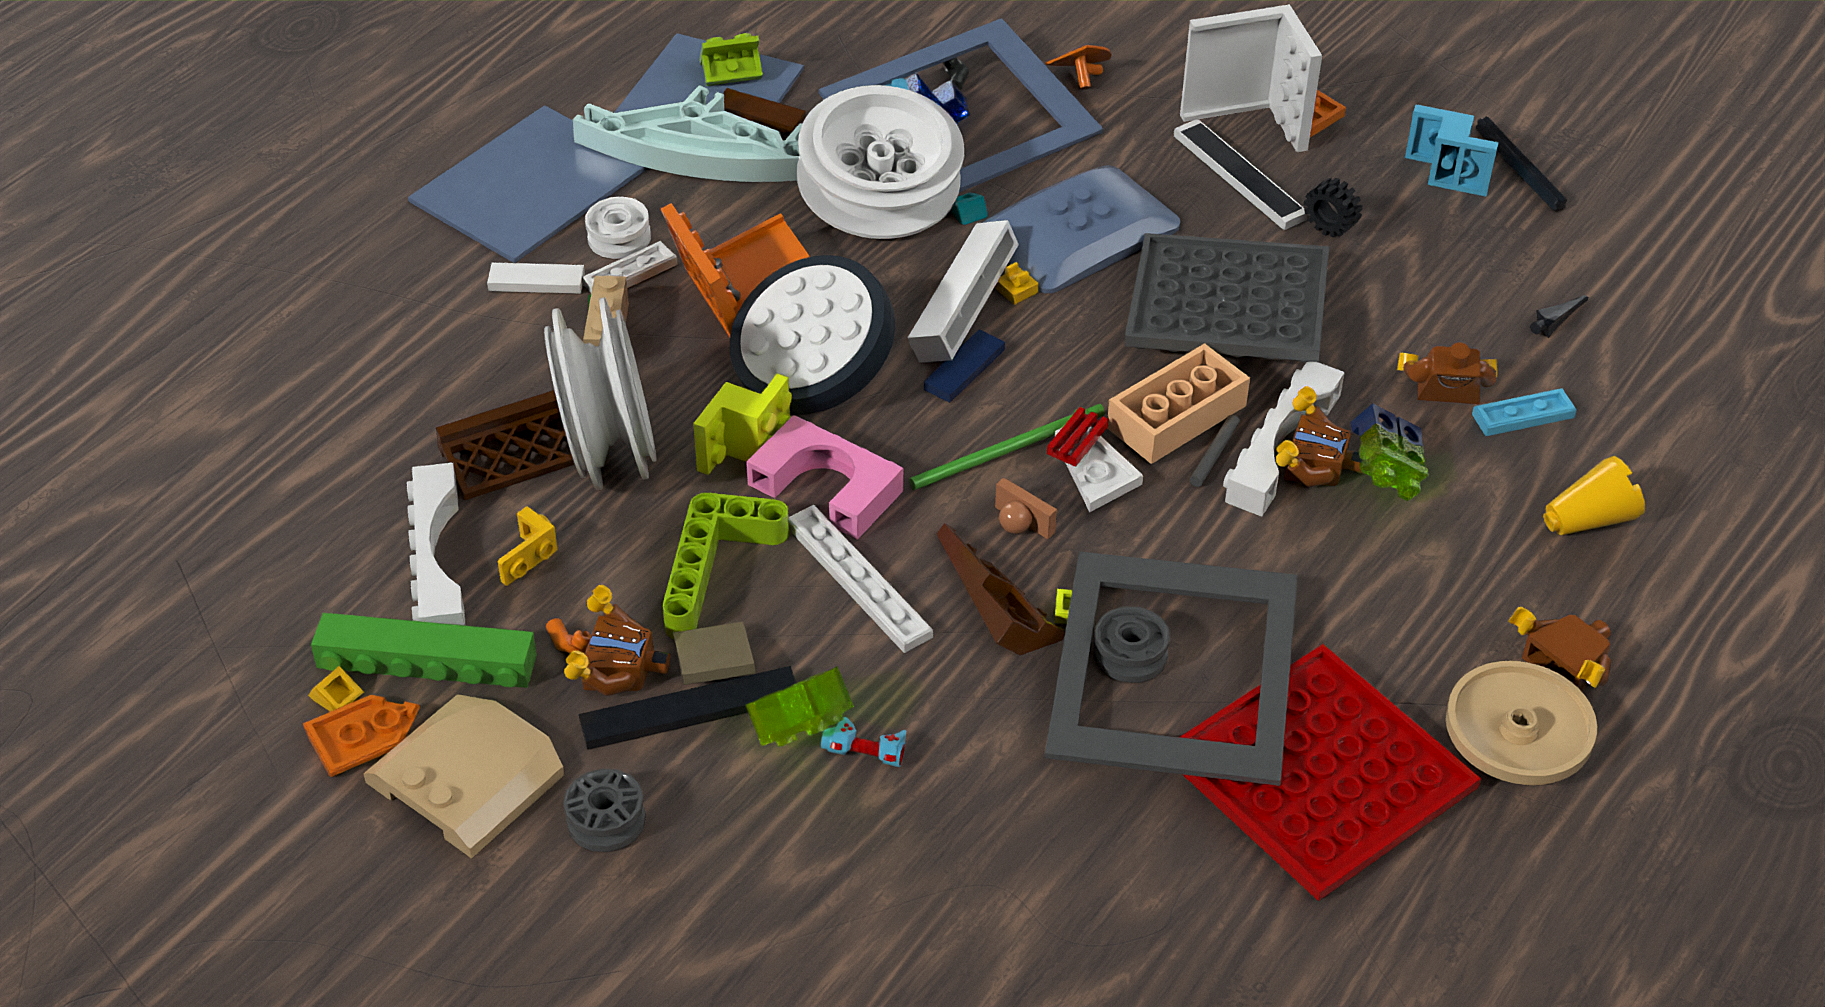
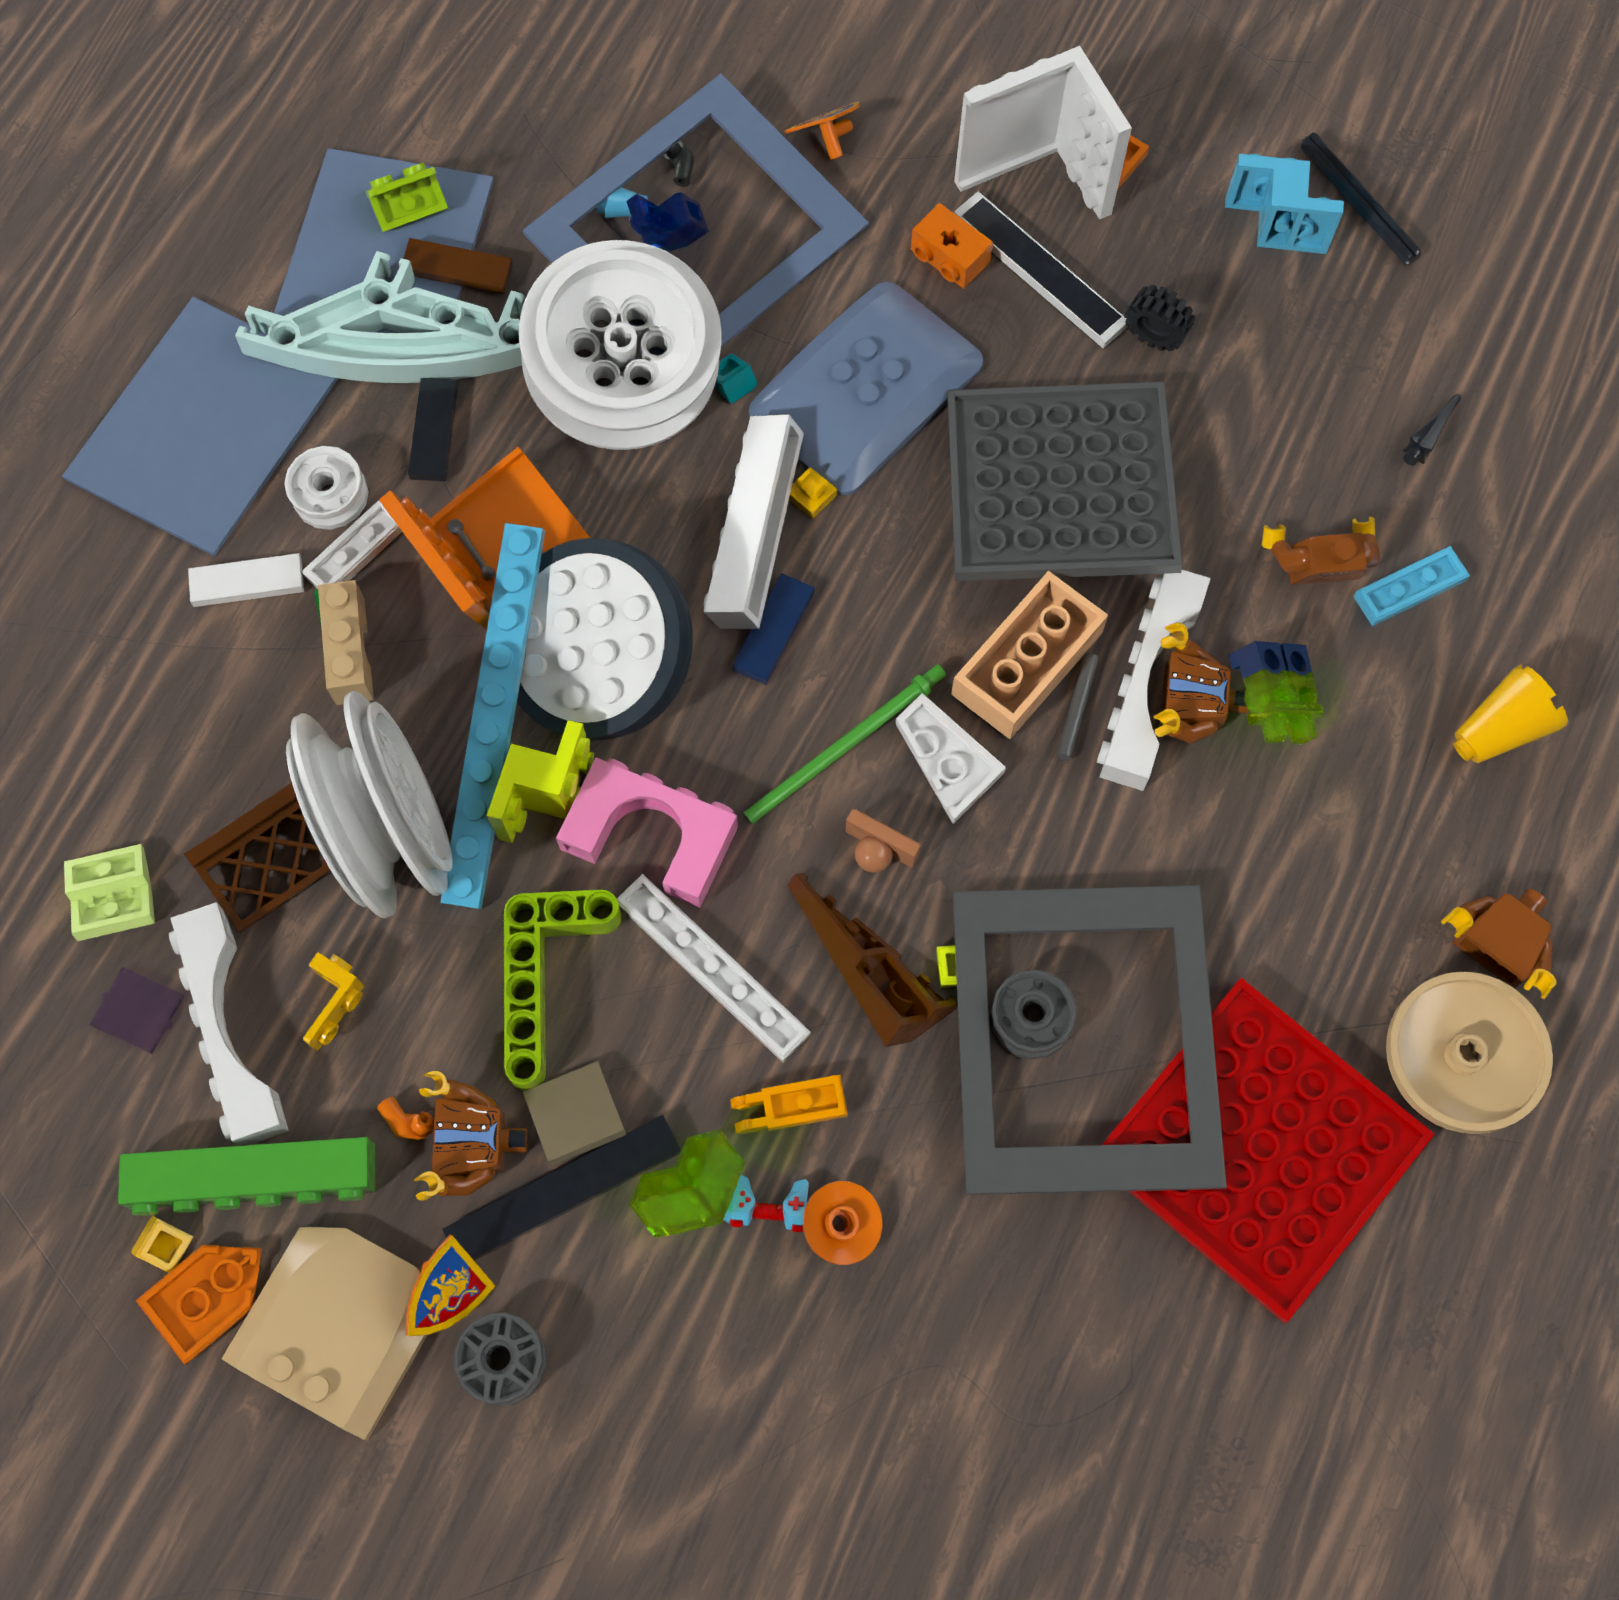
camera: 10 degrees left, 25 degrees up
(363, 536) = (137, 1010): none -> clear purple piece
(364, 455) = (109, 892): none -> yellowish green slope
(571, 745) = (446, 1290): none -> shield
(715, 206) = (433, 429): none -> black tile
(715, 369) = (493, 712): none -> medium azure plate
(902, 676) = (793, 1104): none -> light orange hinge
(935, 749) = (860, 1218): none -> orange dish
(1067, 430) = (934, 699): red tile -> none
(1168, 147) = (951, 245): none -> orange brick

